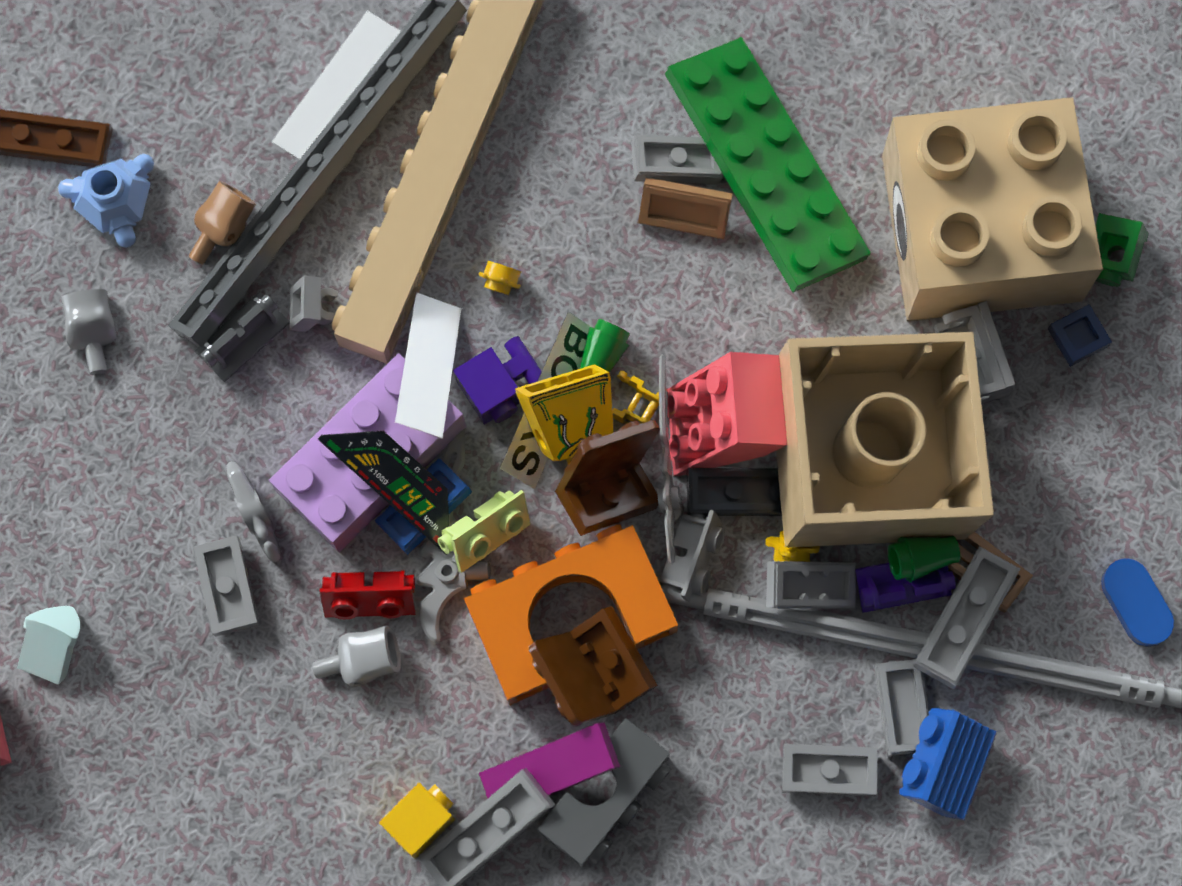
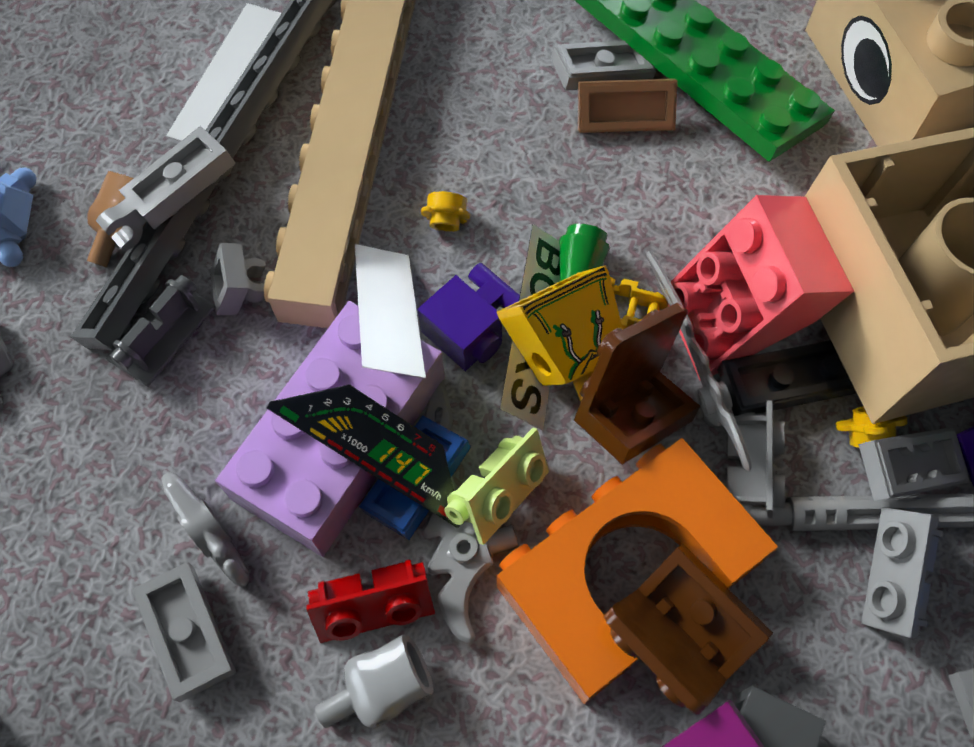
camera: 15 degrees left, 10 degrees down
(268, 214) = (166, 187): none -> light grey plate
(778, 644) = (896, 584): none -> light grey hinge

